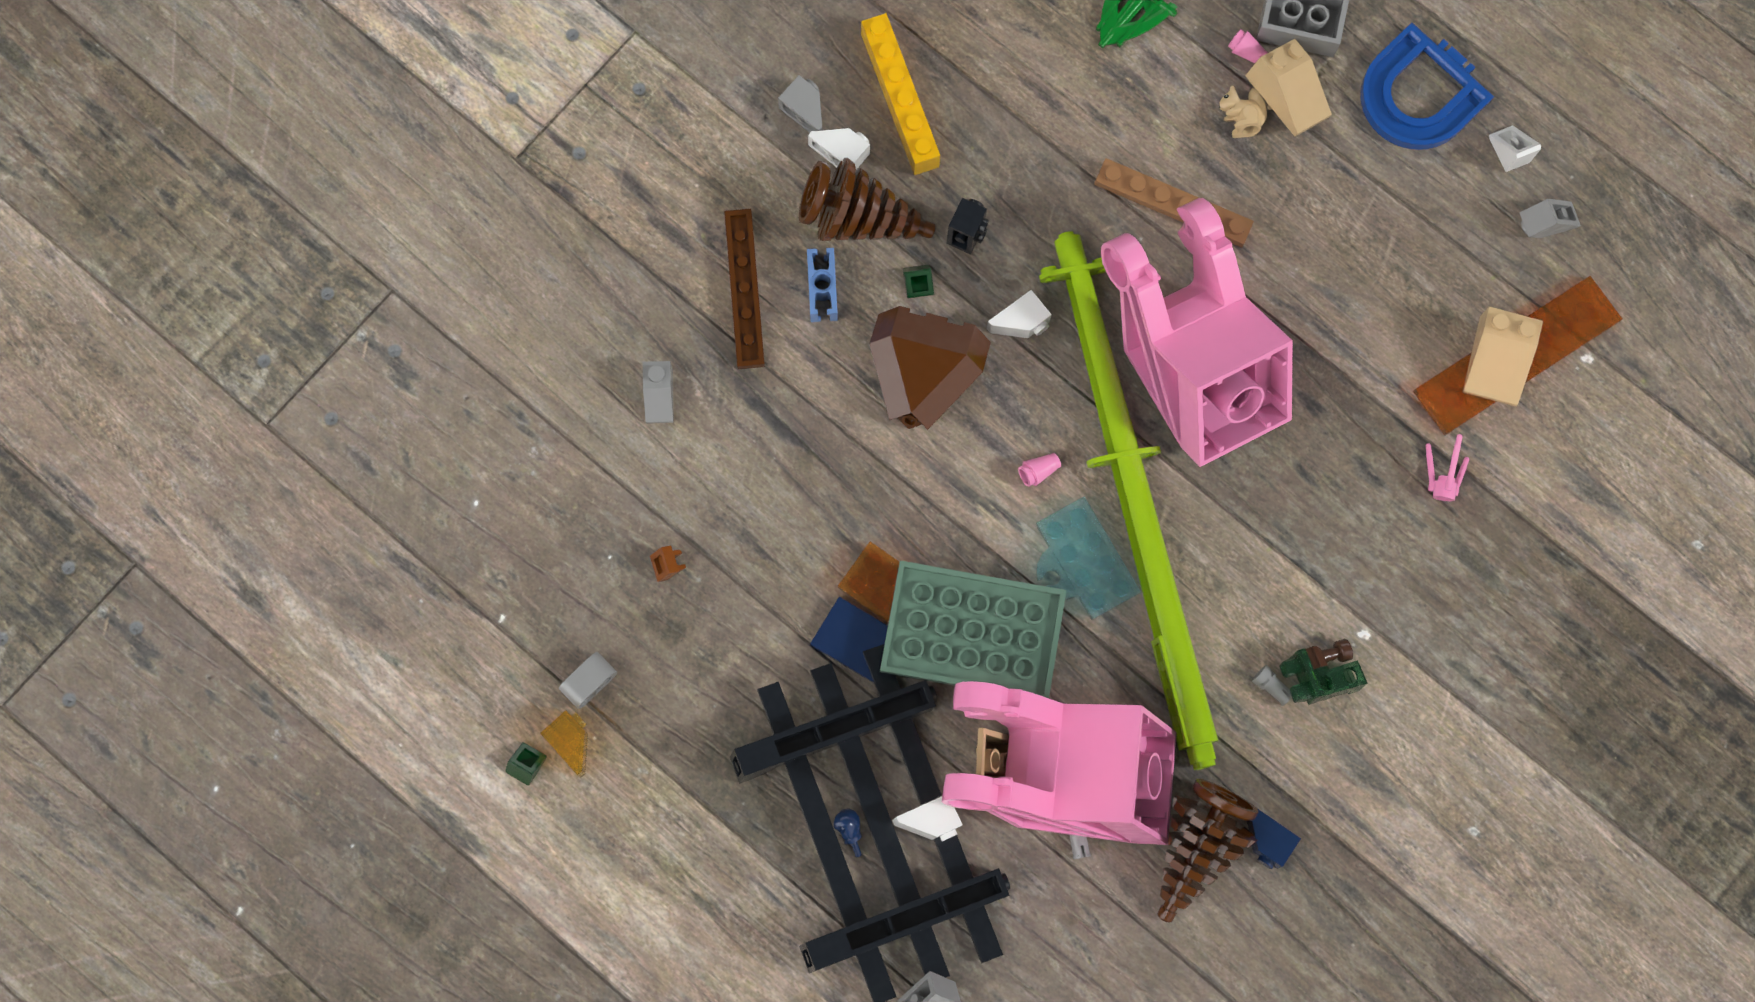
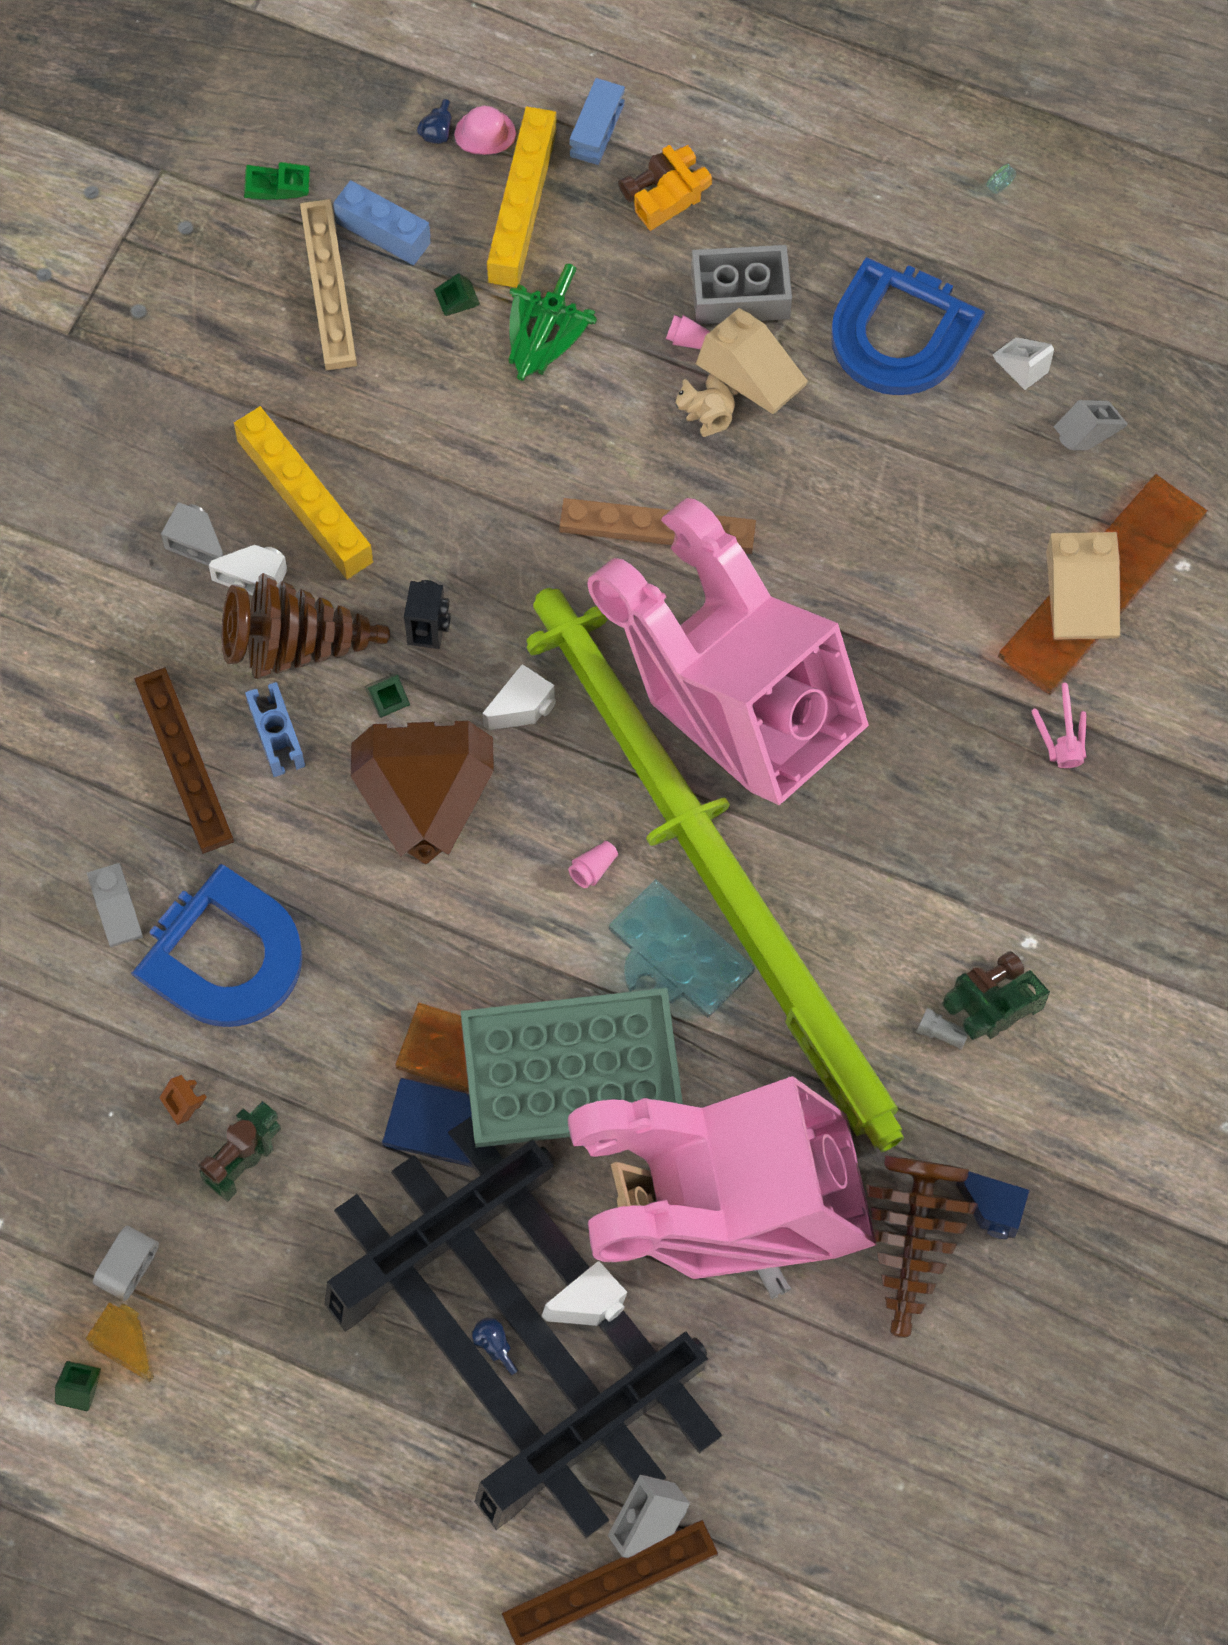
camera: 15 degrees left, 10 degrees down
(698, 480) = (215, 1003): none -> blue piece
(700, 618) = (243, 1149): none -> hips

